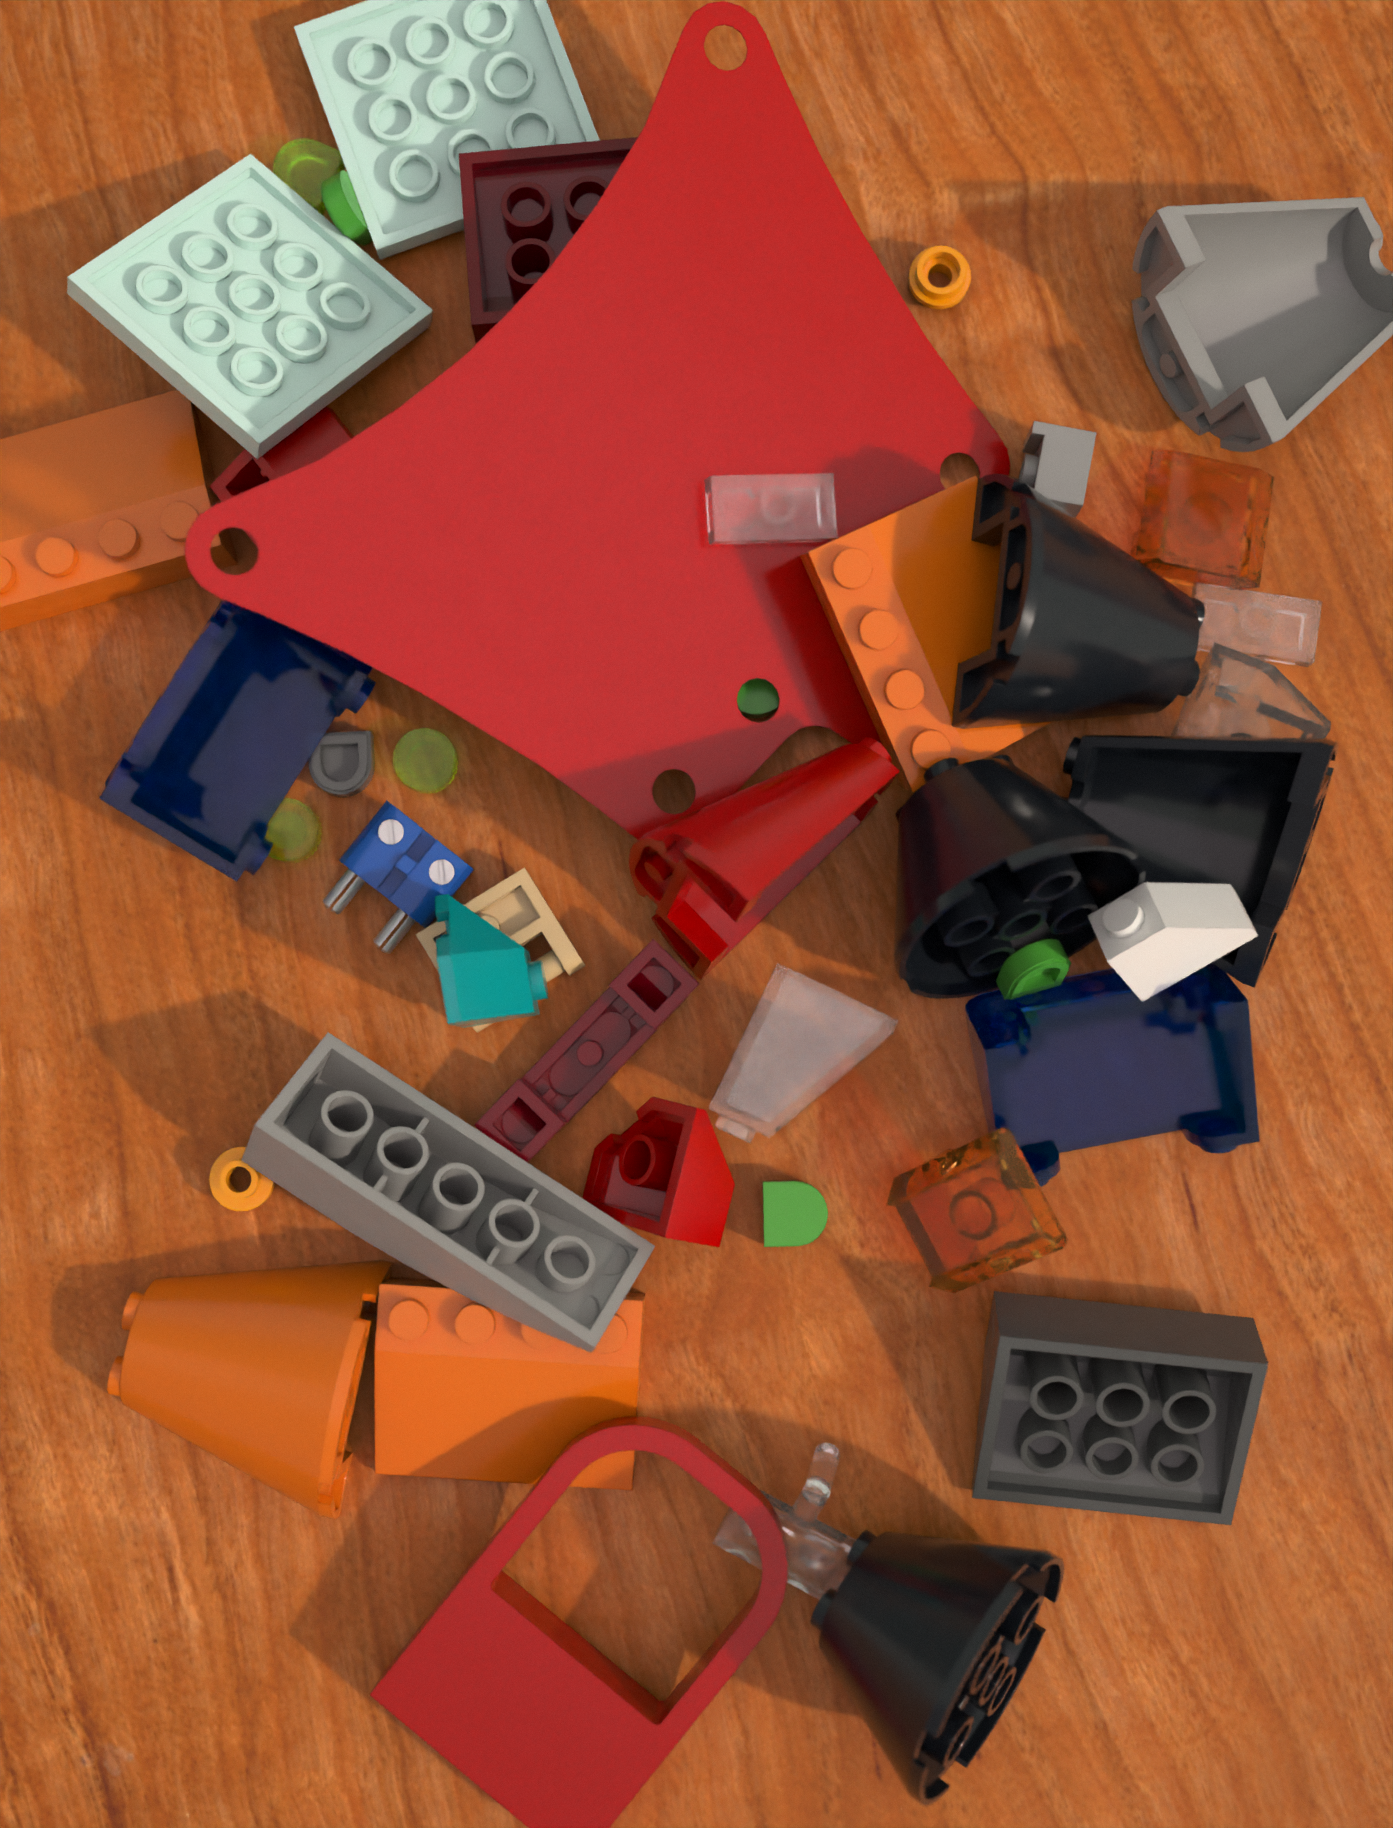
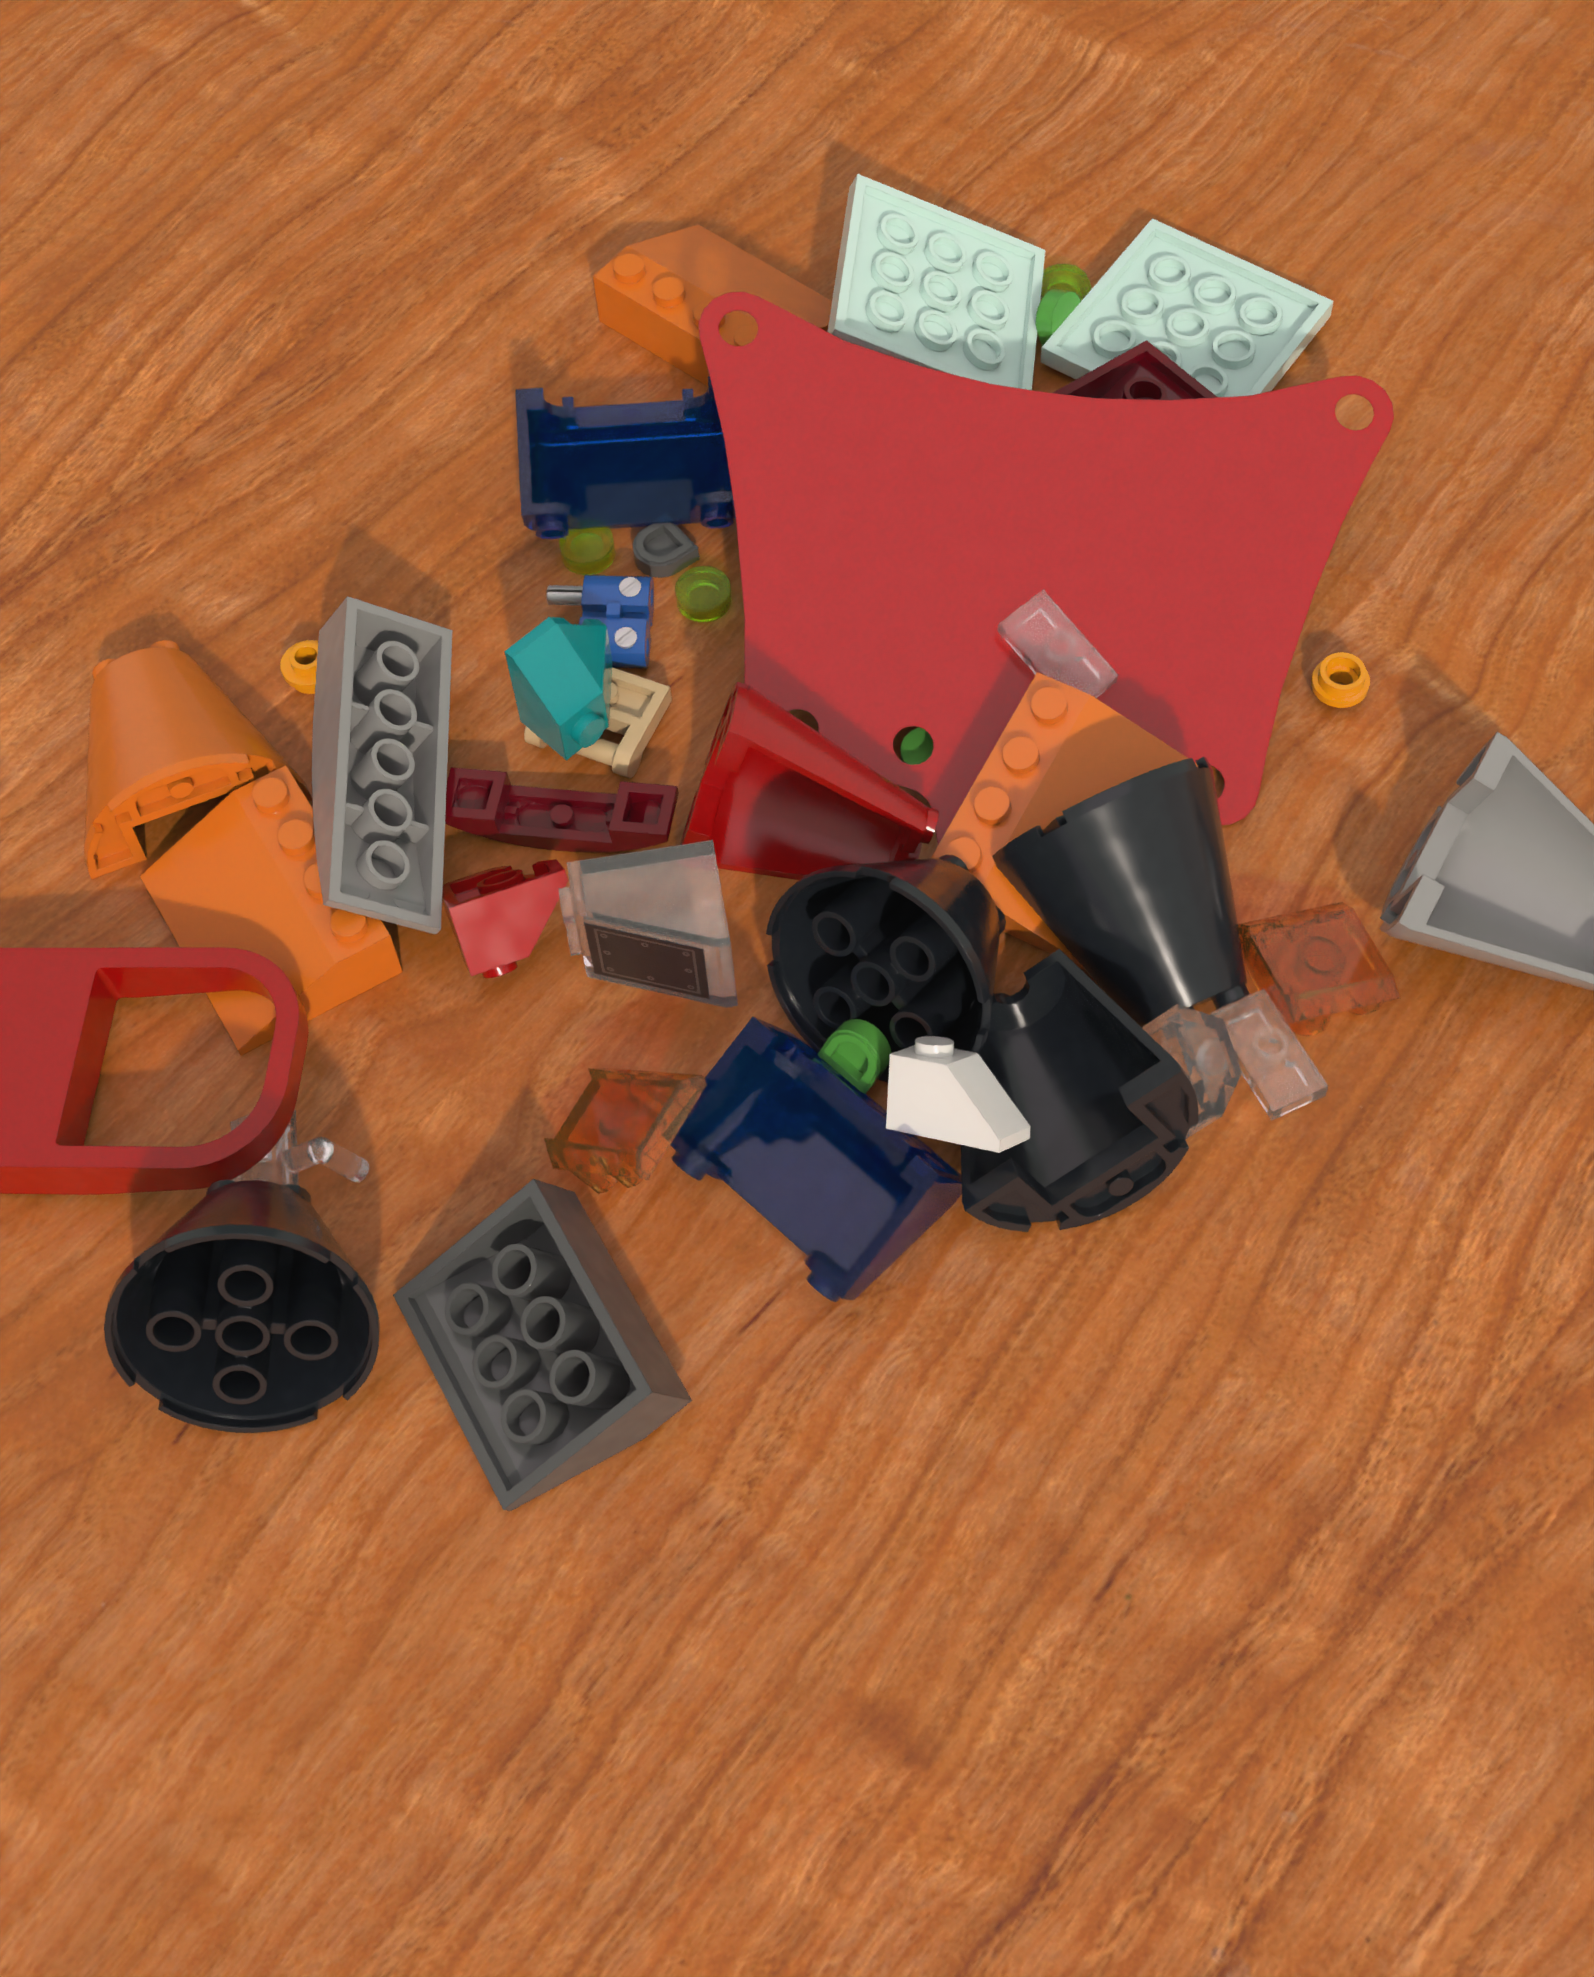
camera: 55 degrees right, 25 degrees down
(792, 1213) = (536, 1024): bright green tile -> none
(1059, 463) = (1264, 838): light grey brick -> none

